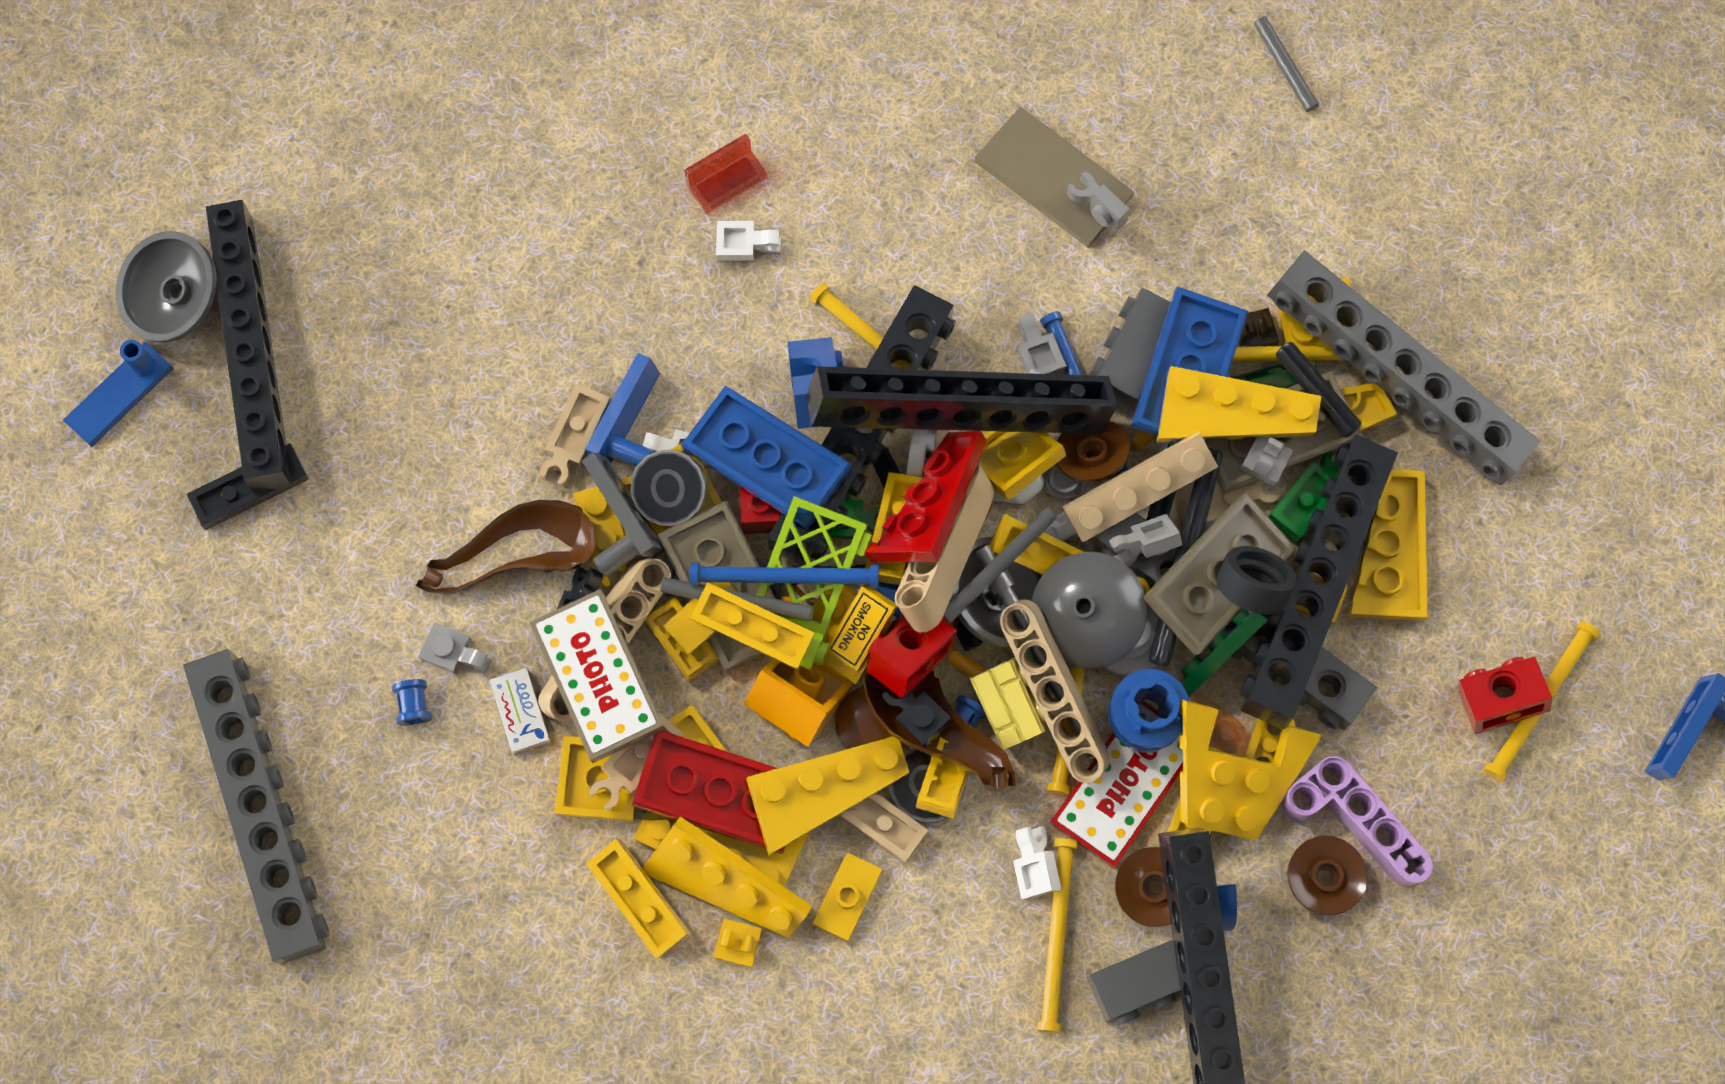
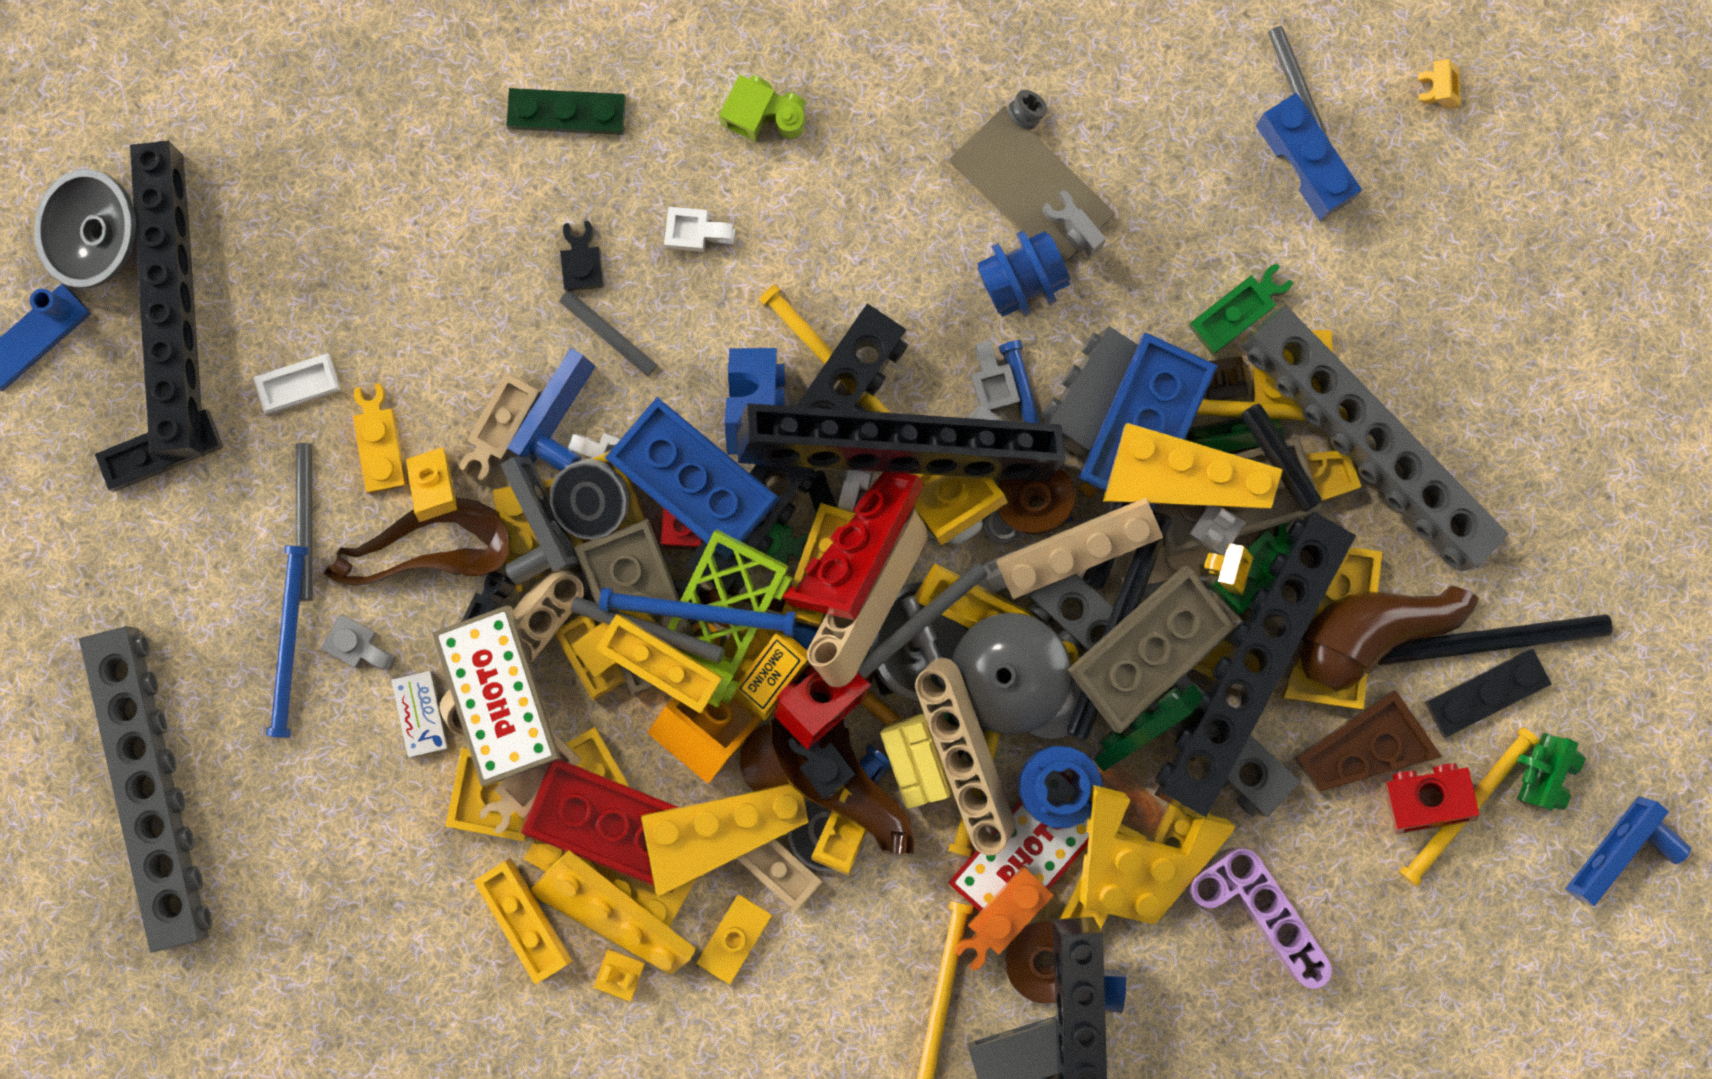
camera: 10 degrees right, 10 degrees up
(376, 414) = (297, 384): none -> white tile
(385, 652) = (287, 641): none -> blue bar
(392, 541) = (304, 513): none -> dark grey bar
(411, 702) = (310, 696): blue bush -> none
(459, 462) = (378, 443): none -> yellow plate
(514, 491) = (431, 484): none -> yellow plate
(611, 147) = (566, 111): none -> dark green plate
(639, 281) = (581, 264): none -> black plate
(669, 341) = (608, 333): none -> dark grey bar
(724, 174) = (682, 154): clear red panel -> none
(790, 123) = (755, 103): none -> lime brick
(1037, 868) = (926, 930): white plate -> none
(1041, 107) = (1027, 109): none -> dark grey bush
(1057, 248) = (1024, 273): none -> blue piece
(1110, 845) = (1005, 916): none -> orange plate
(1149, 538) = (1083, 603): light grey plate -> none
(1256, 580) = (1173, 682): black tyre -> none
(1259, 267) = (1237, 310): none -> green plate
(1284, 494) = (1231, 568): none -> yellow tile
(1323, 141) = (1322, 173): none -> blue arch
(1343, 864) = (1243, 972): reddish brown dish -> none
(1418, 540) = (1366, 626): none -> reddish brown animal
(1422, 53) = (1446, 84): none -> yellow tile
(1437, 652) = (1368, 744): none -> reddish brown wing
(1540, 544) = (1500, 639): none -> black axle
(1543, 593) = (1488, 693): none -> black plate
(1609, 659) = (1547, 772): none -> green hips

